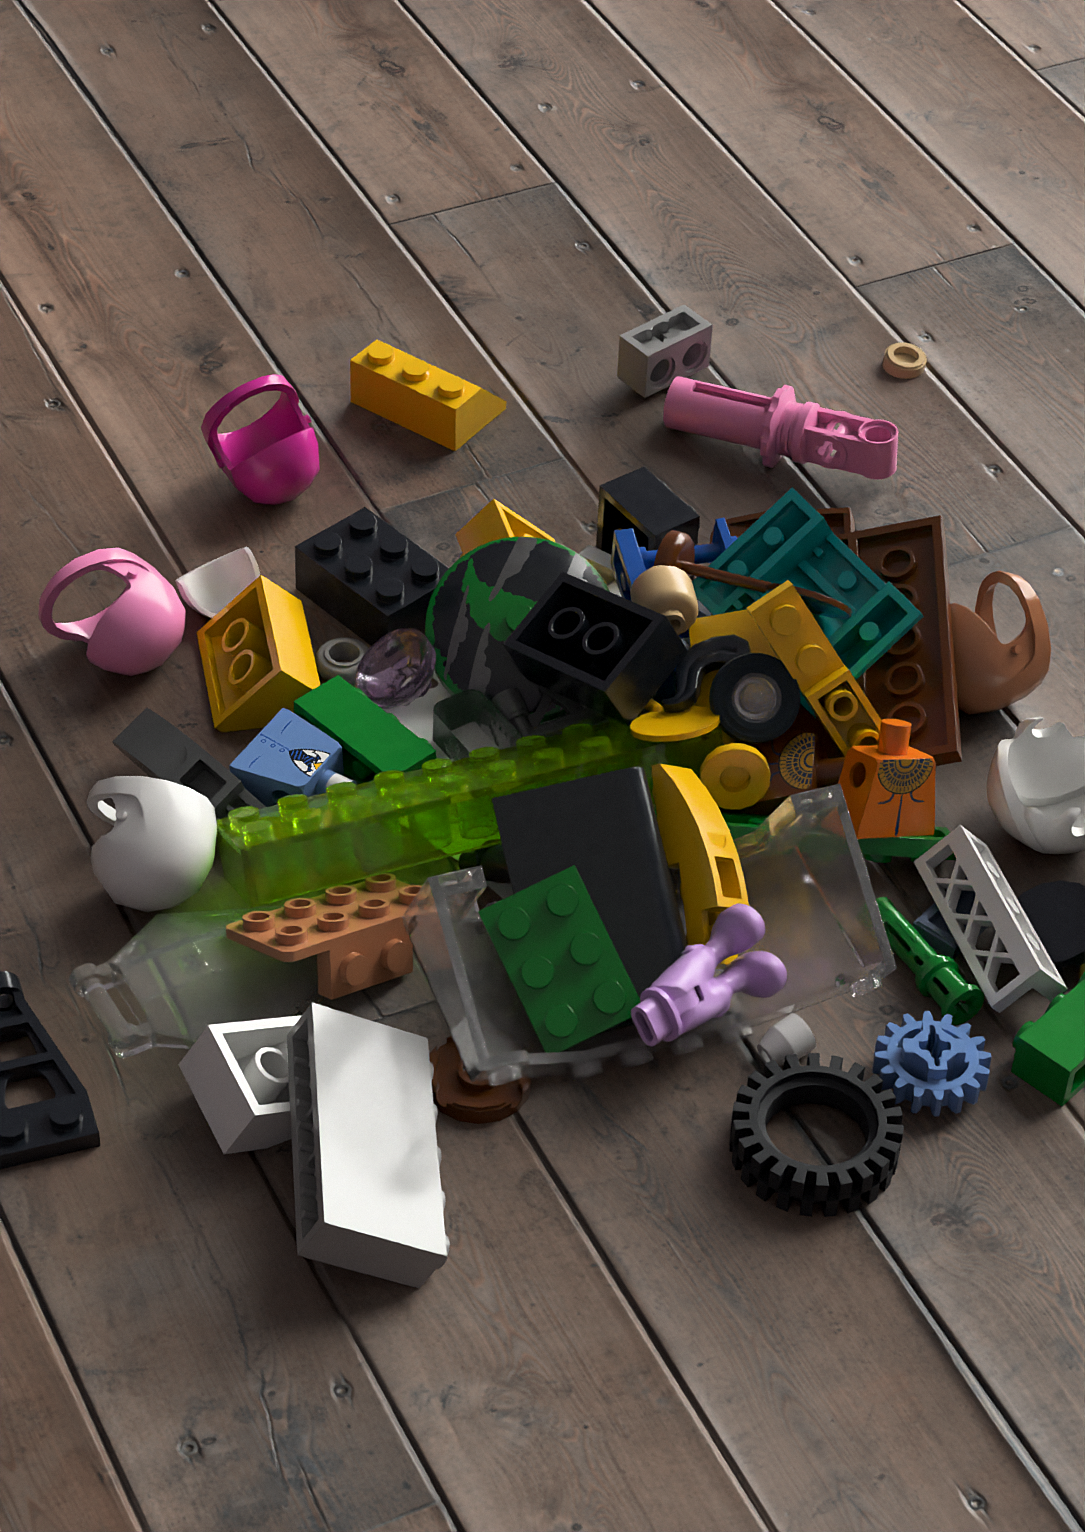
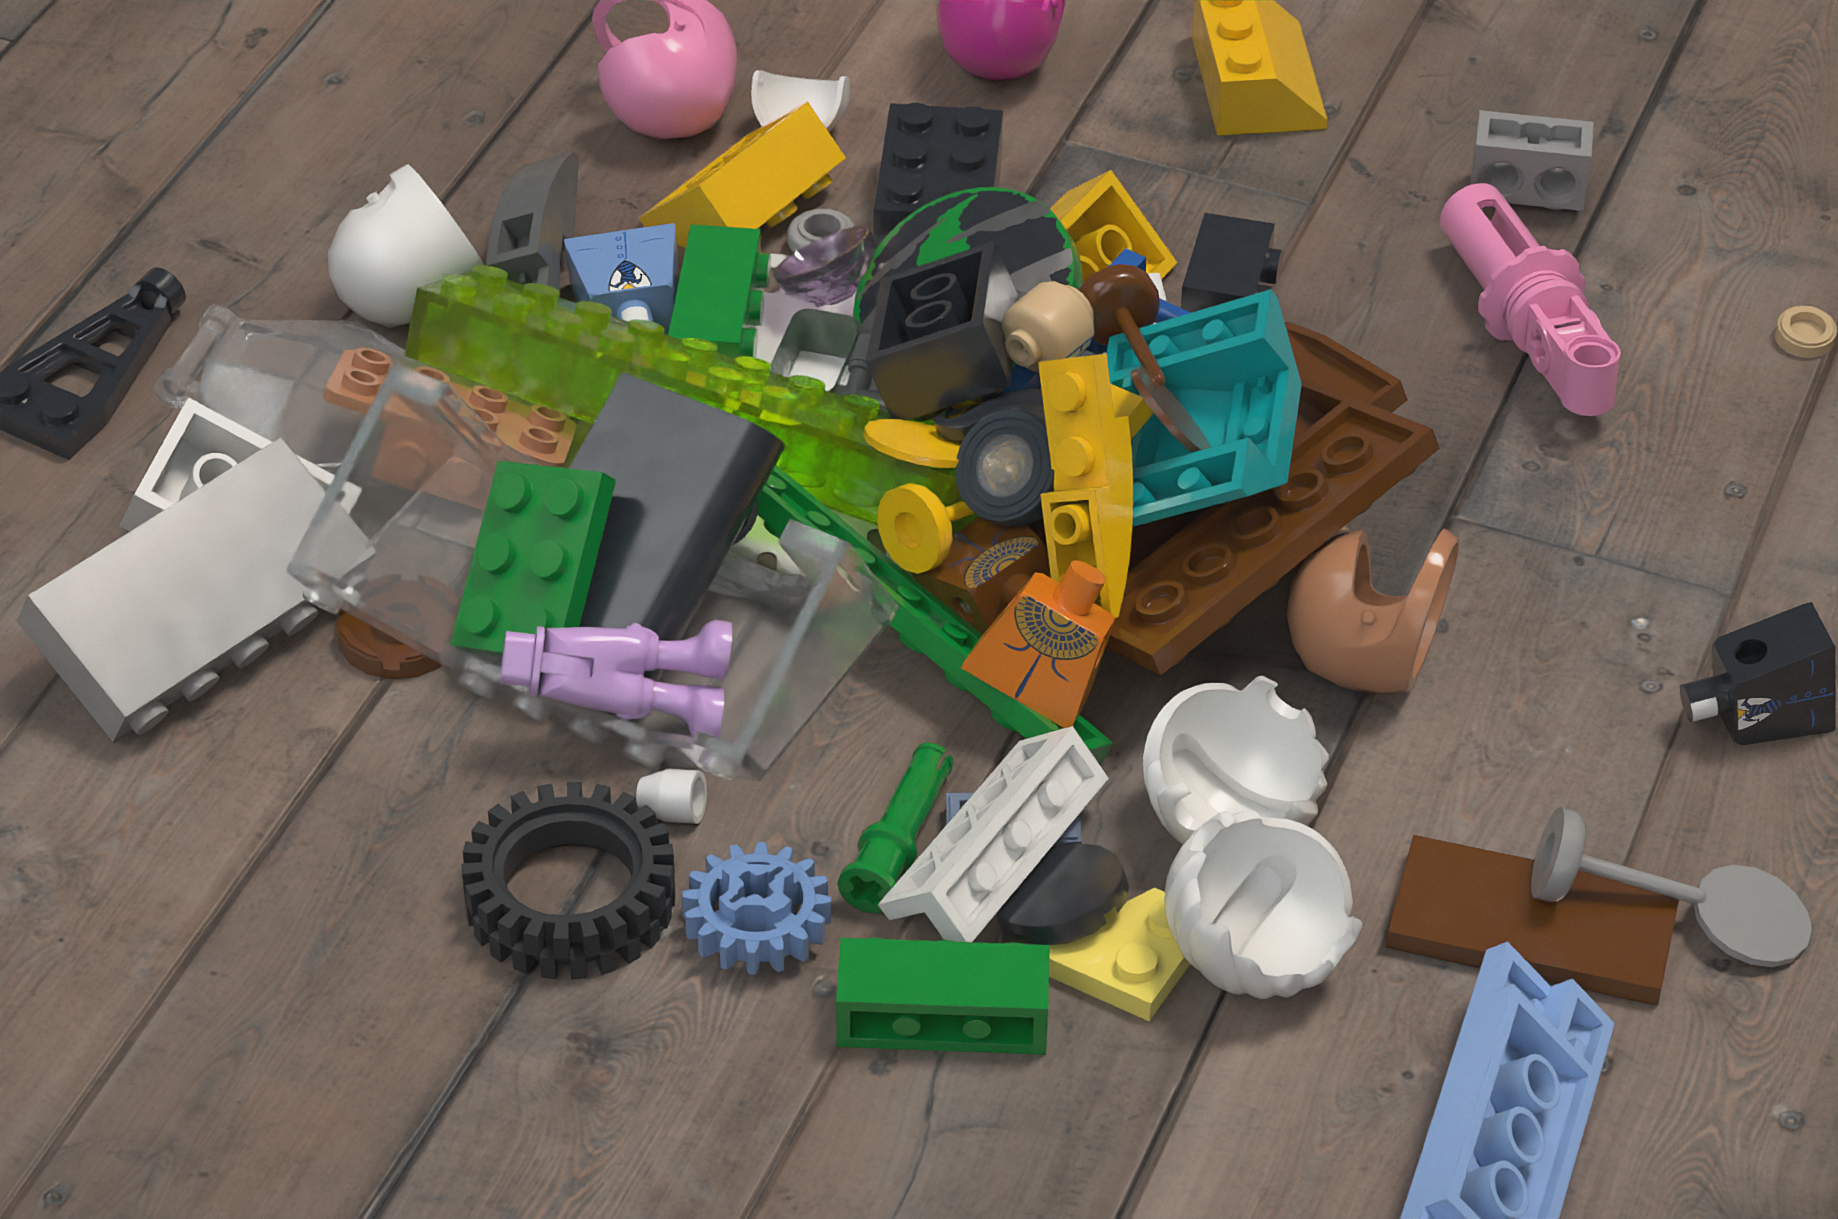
camera: 50 degrees right, 0 degrees up
(699, 846) = (764, 580): yellow slope -> none

